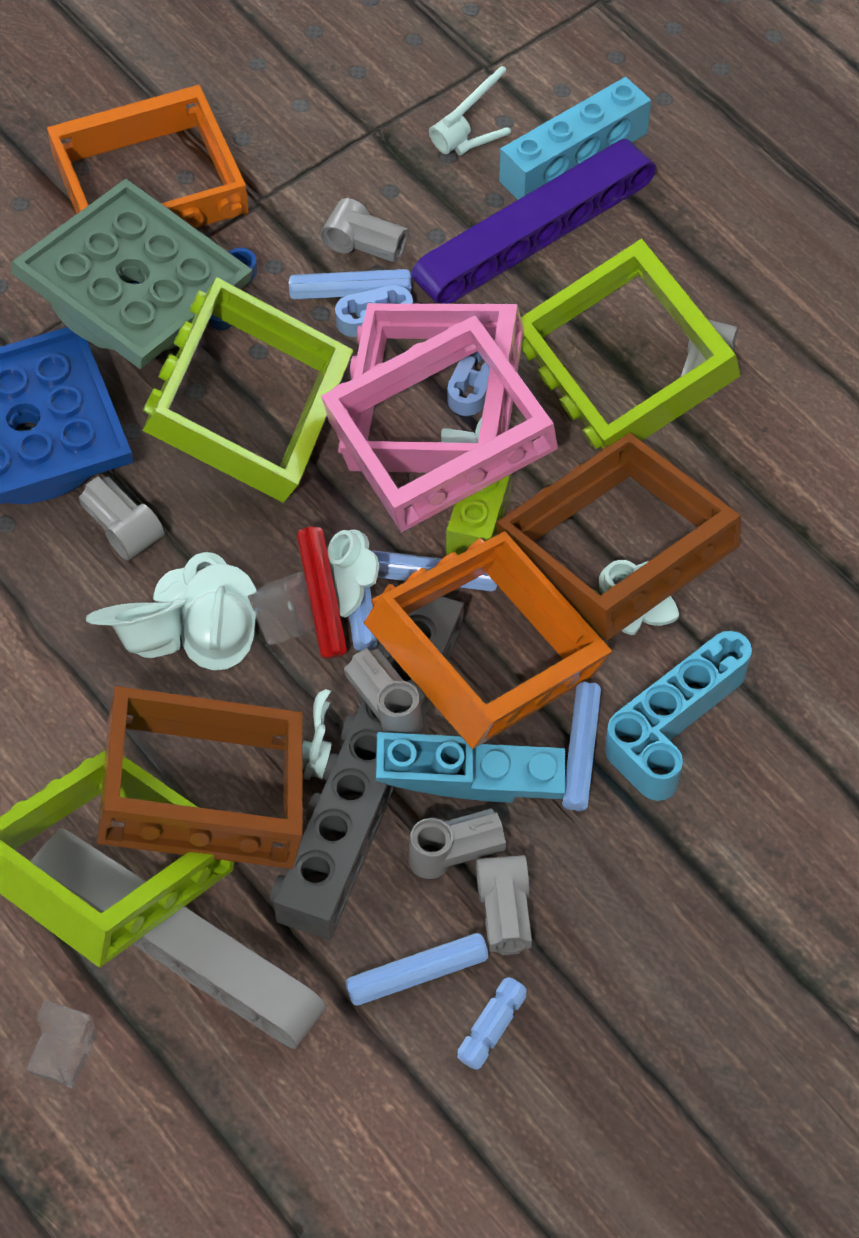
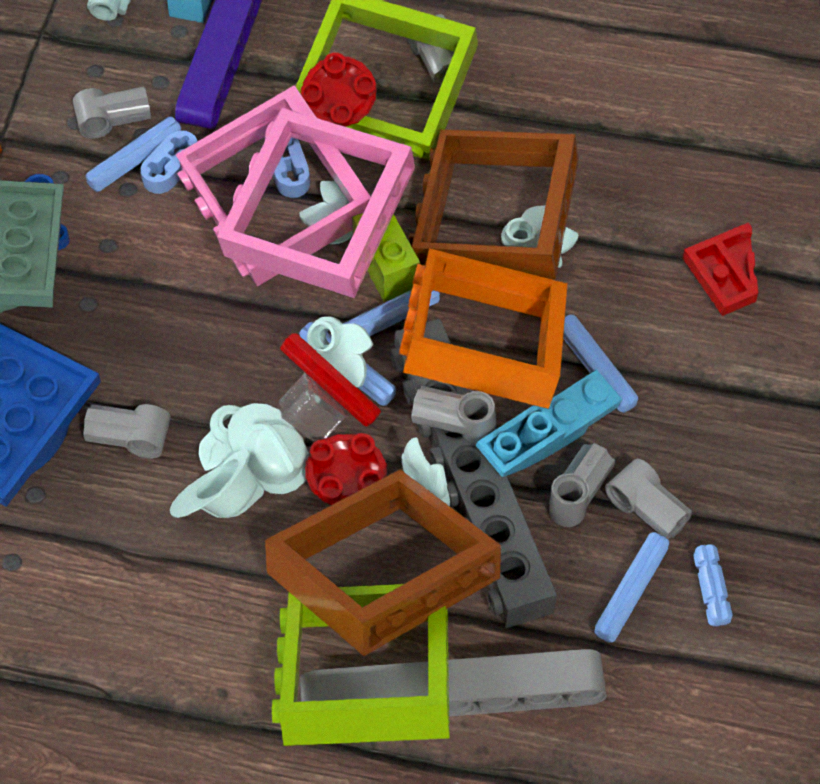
camera: 40 degrees left, 0 degrees up
(267, 676) = (343, 466): none -> red dish
(279, 332) = (155, 213): lime window -> none
(560, 336) = (339, 90): none -> red dish
(685, 706) = (633, 321): medium azure beam -> none
(791, 743) = (726, 268): none -> red wing

